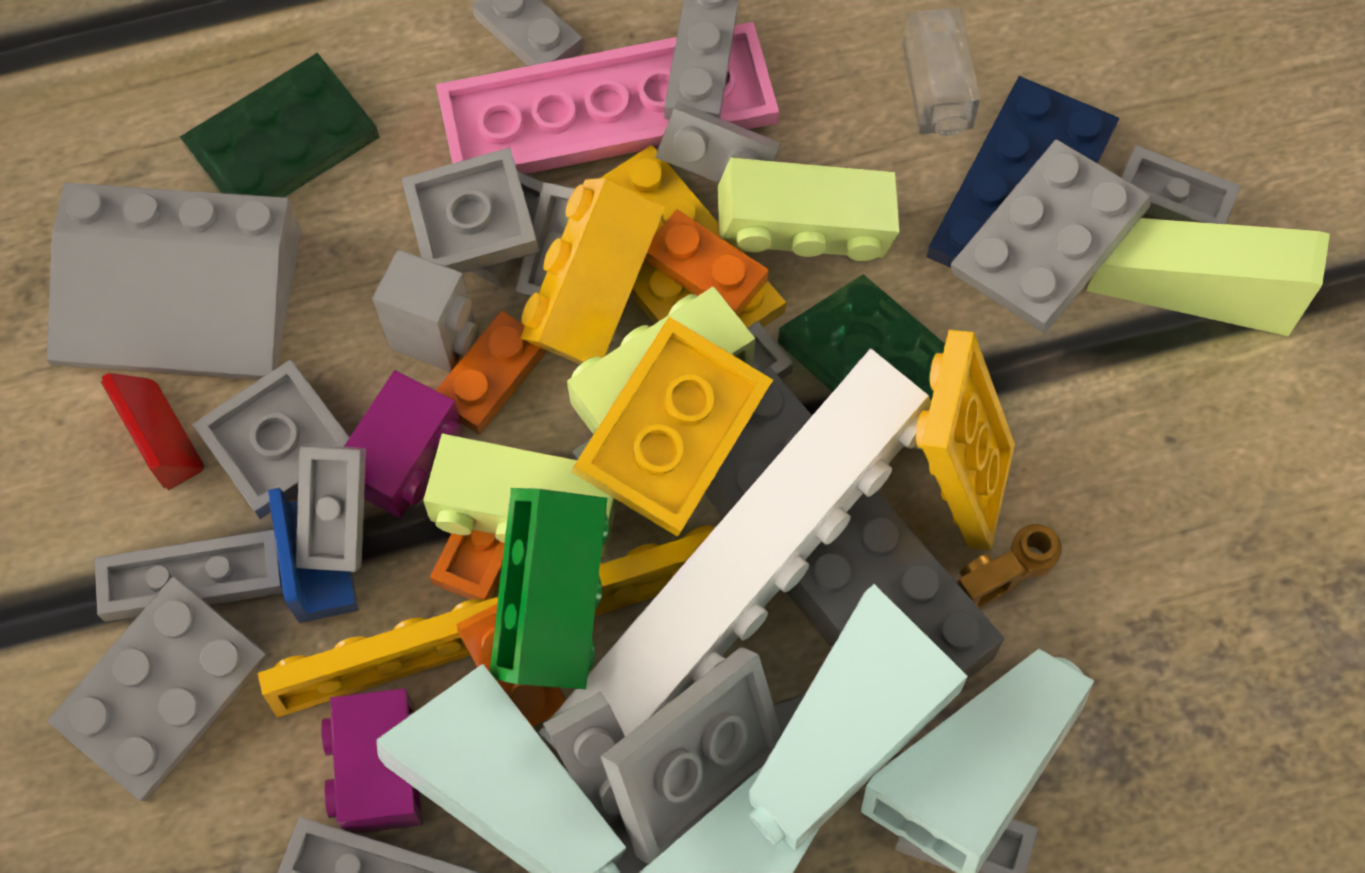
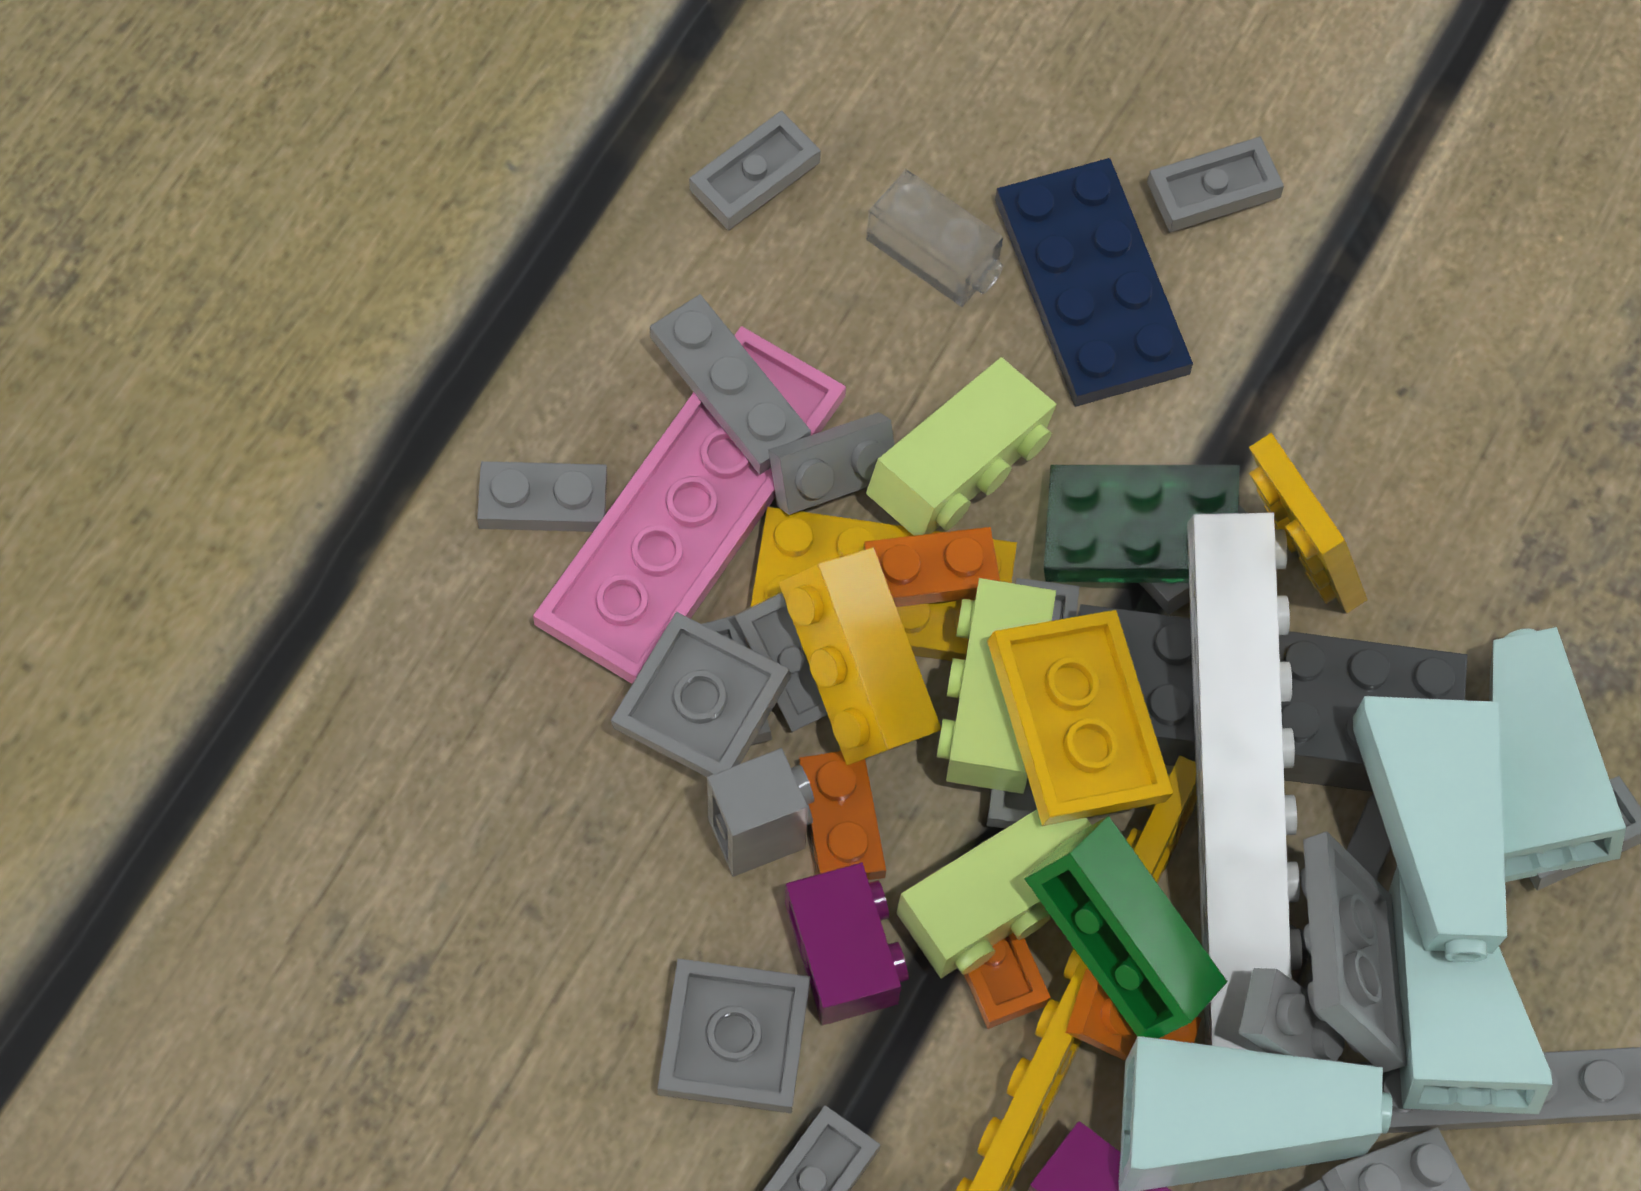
camera: 50 degrees left, 0 degrees up
(153, 428) = (620, 1128): red slope -> none
(170, 280) = (495, 992): light grey slope -> none
(281, 133) = (435, 785): clear green plate -> none
(307, 592) = (872, 1096): blue panel -> none
(330, 507) = (866, 1039): light grey plate -> none
(990, 579) = (1397, 621): pearl gold plate -> none
(1050, 235) = (1174, 304): light grey plate -> none
(1218, 271) = (1309, 228): yellowish green slope -> none

